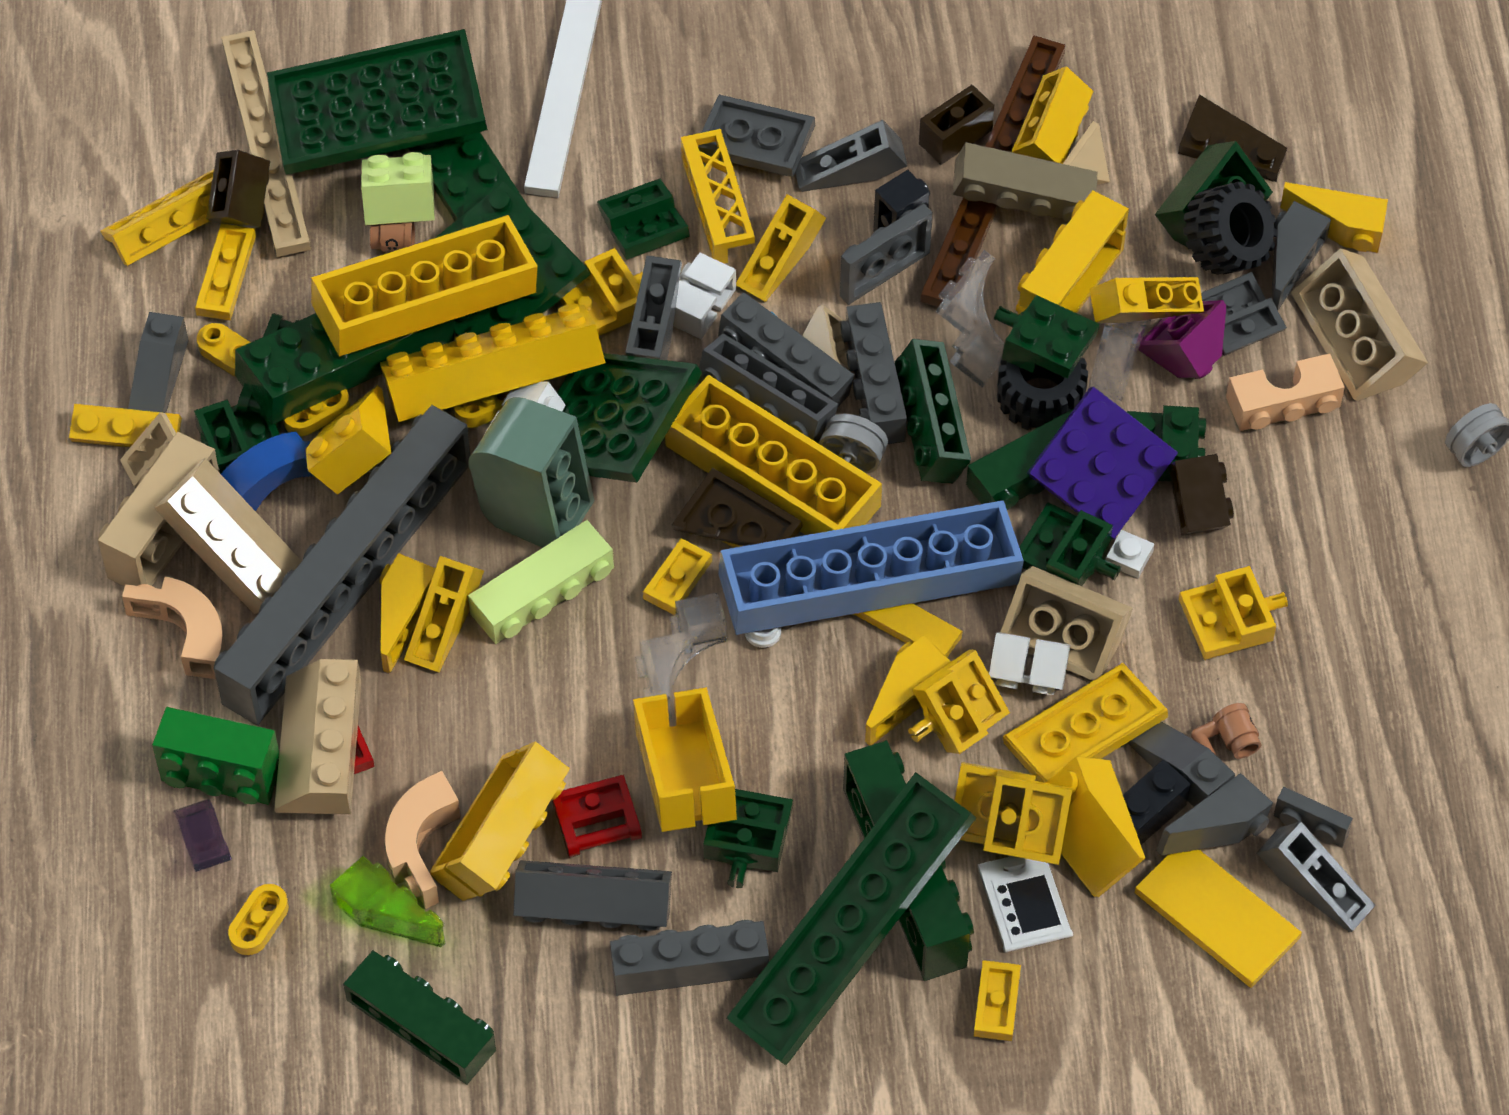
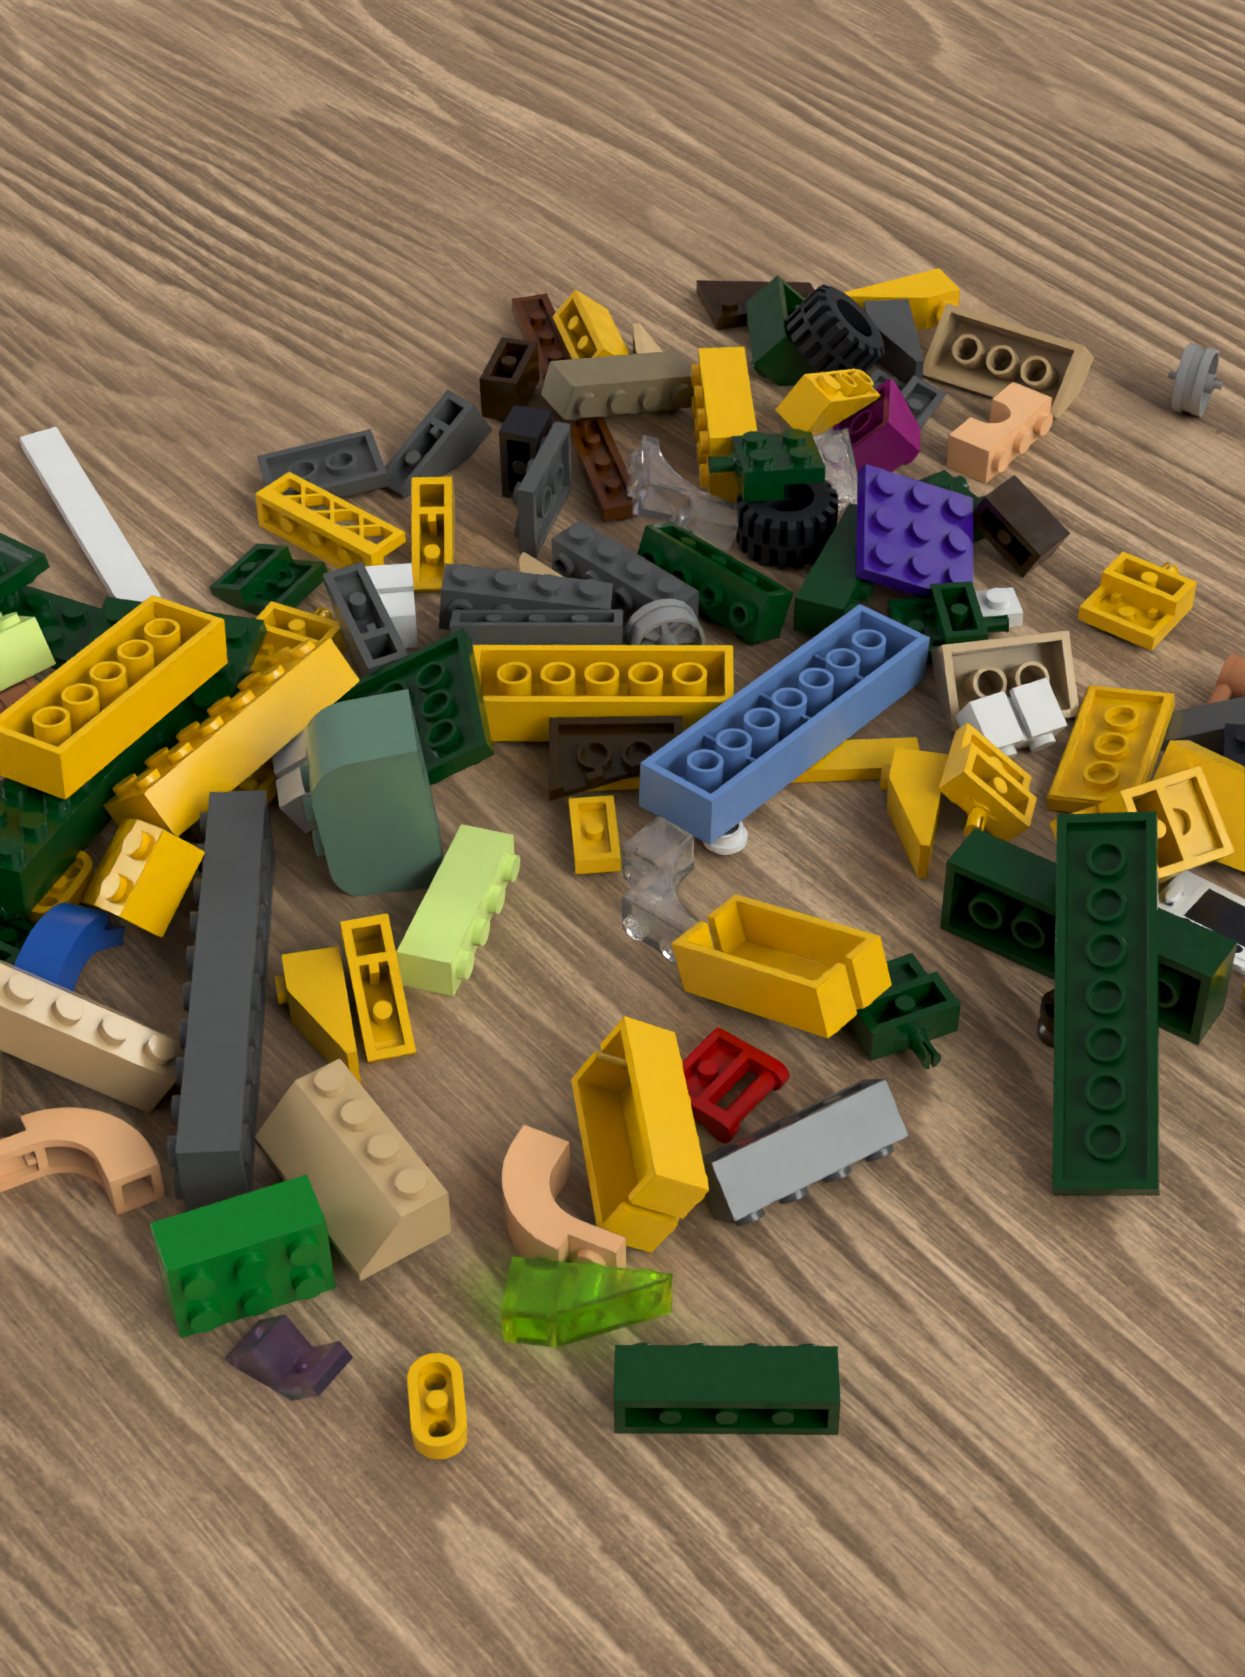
camera: 35 degrees left, 15 degrees down
(689, 957) = (958, 1152): dark grey brick -> none

